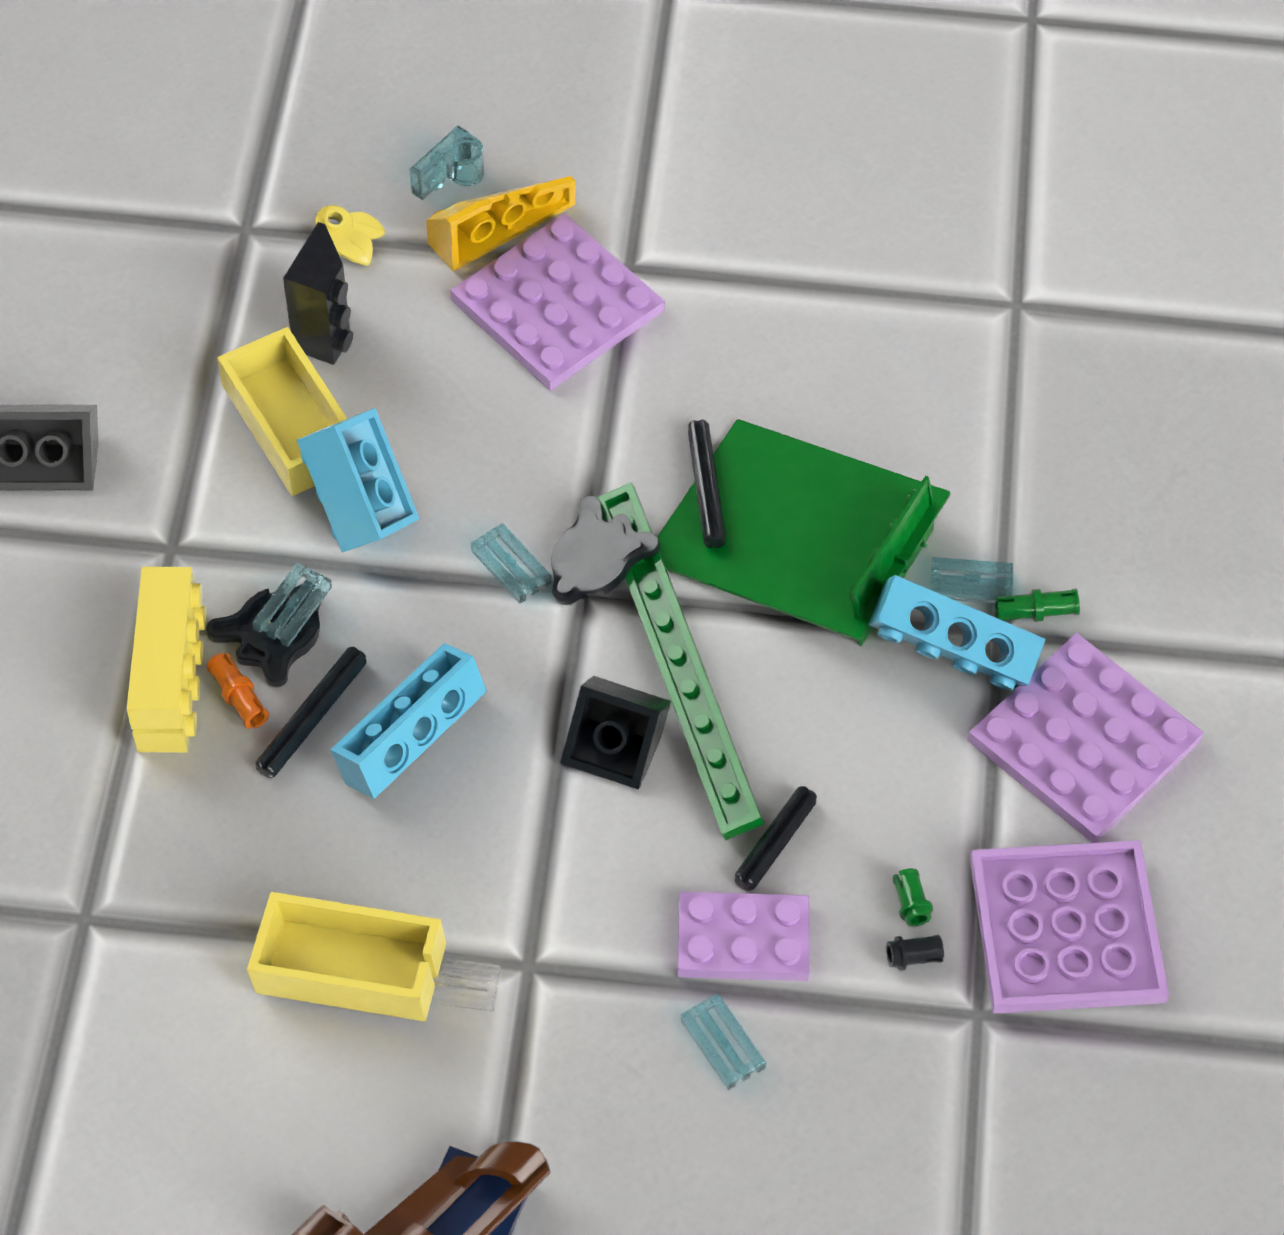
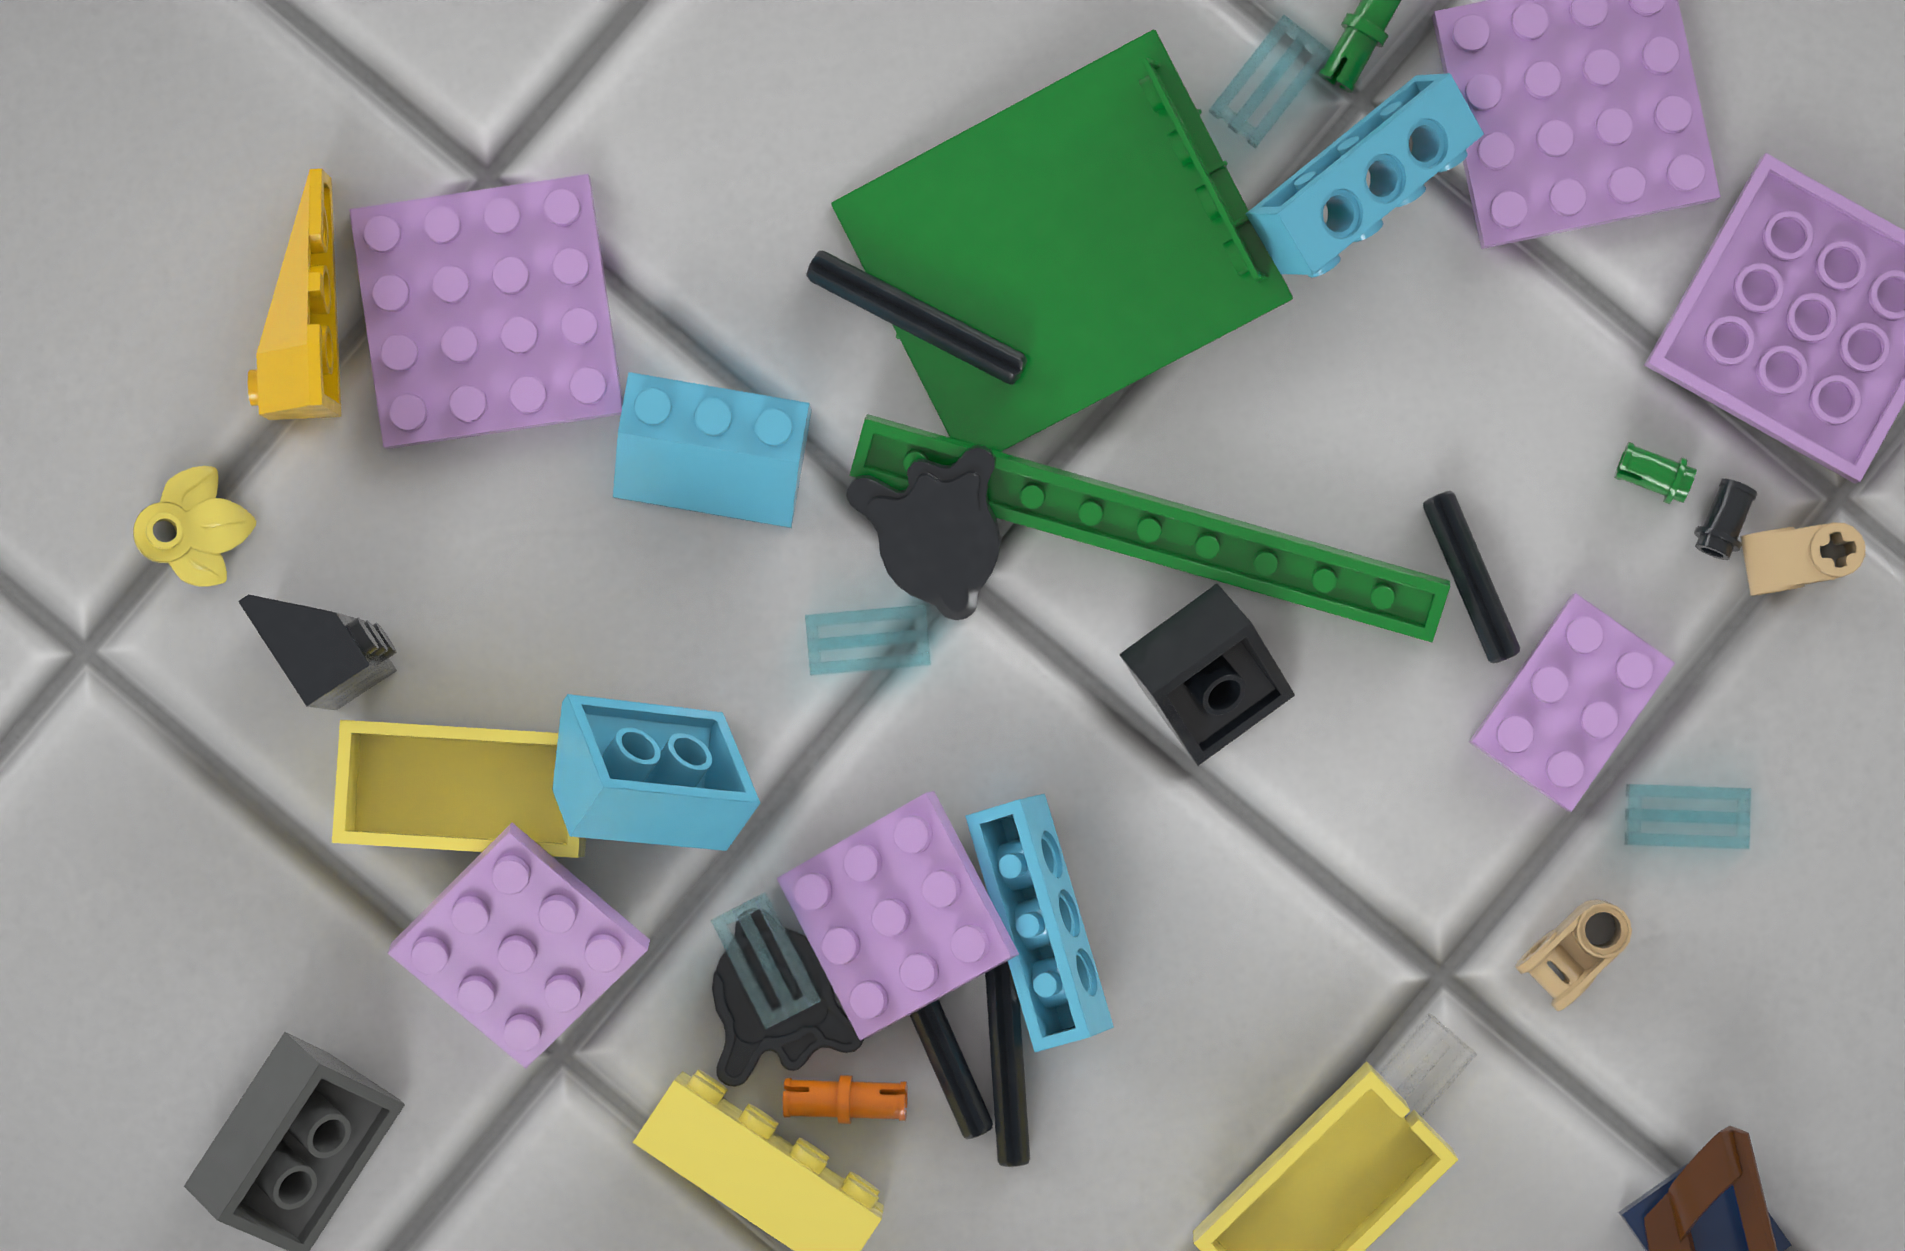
camera: 55 degrees left, 30 degrees up
(218, 477) = (519, 946): none -> lavender plate
(298, 771) = (1007, 1068): none -> black axle
(362, 648) = (897, 915): none -> lavender plate
(455, 157) = (163, 346): clear light blue plate -> none
(561, 429) = (710, 449): none -> medium azure slope
(589, 1021) = (1574, 954): none -> tan piece
(925, 1003) = (1792, 557): none -> tan piece

